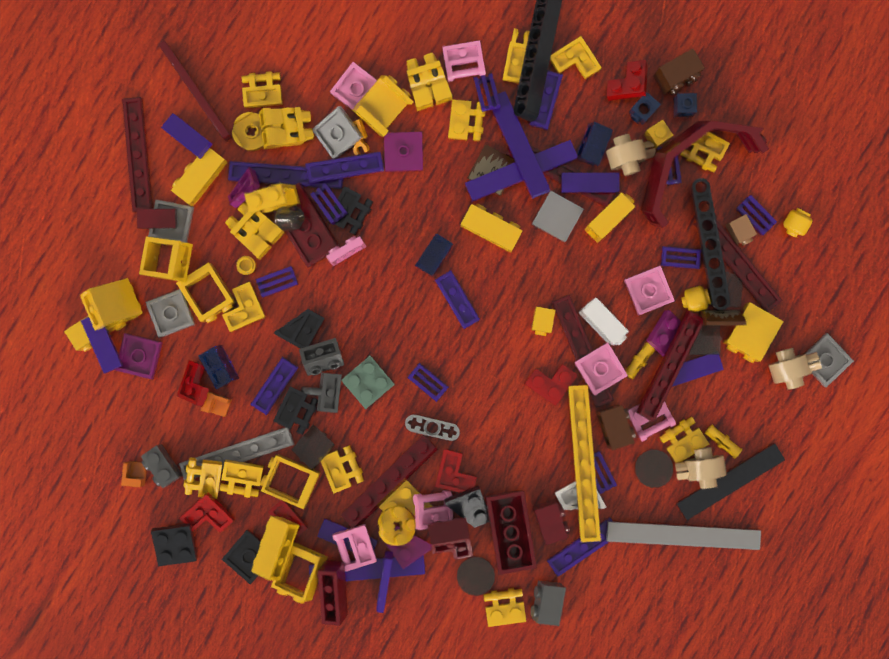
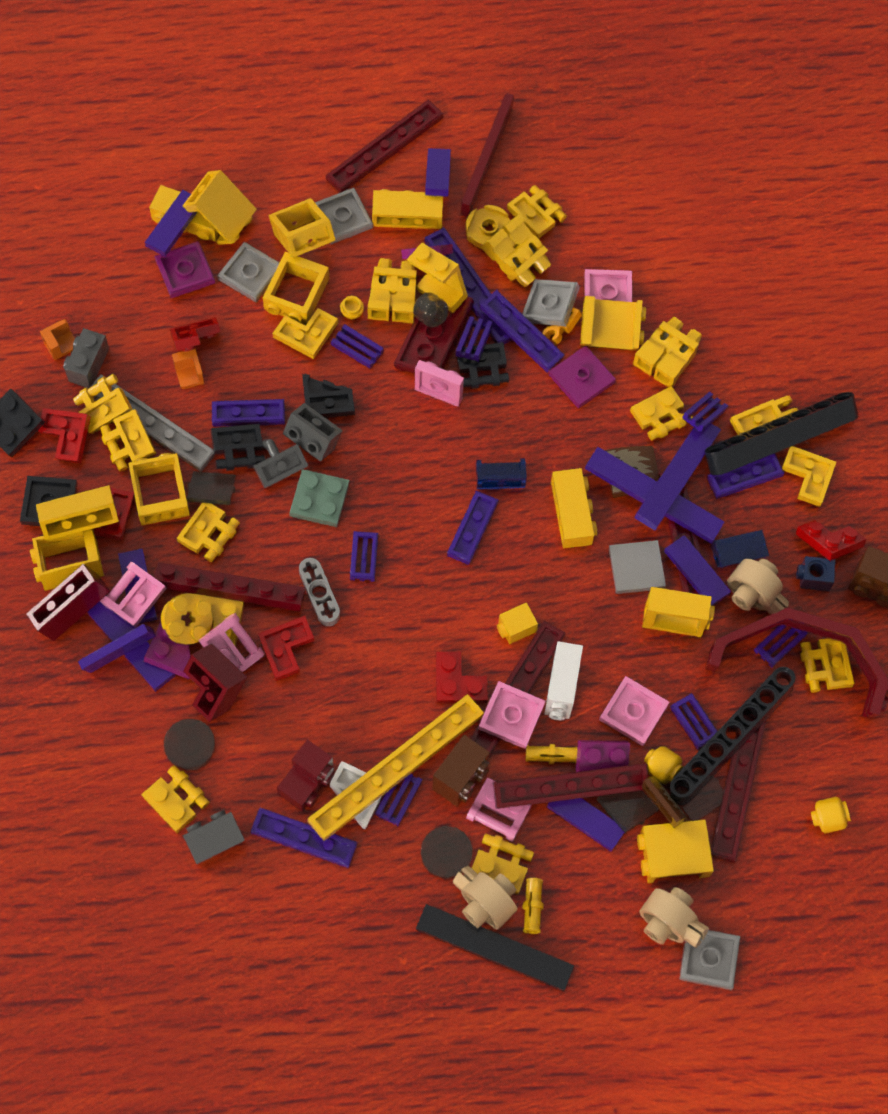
camera: 40 degrees right, 20 degrees down
(157, 218) = (335, 198): dark red tile -> none
(218, 366) = (229, 346): clear blue hinge -> none
(463, 54) = (723, 366): bright pink plate -> none
(469, 505) = (263, 684): black wing -> none
(511, 532) = (263, 741): dark red brick -> none
(658, 134) = (804, 600): yellow brick -> none
(683, 535) = (396, 937): light grey tile -> none
(685, 105) = (854, 610): dark blue brick -> none
(741, 230) = (774, 760): medium nougat brick -> none
(767, 226) = (813, 768): dark purple tile -> none

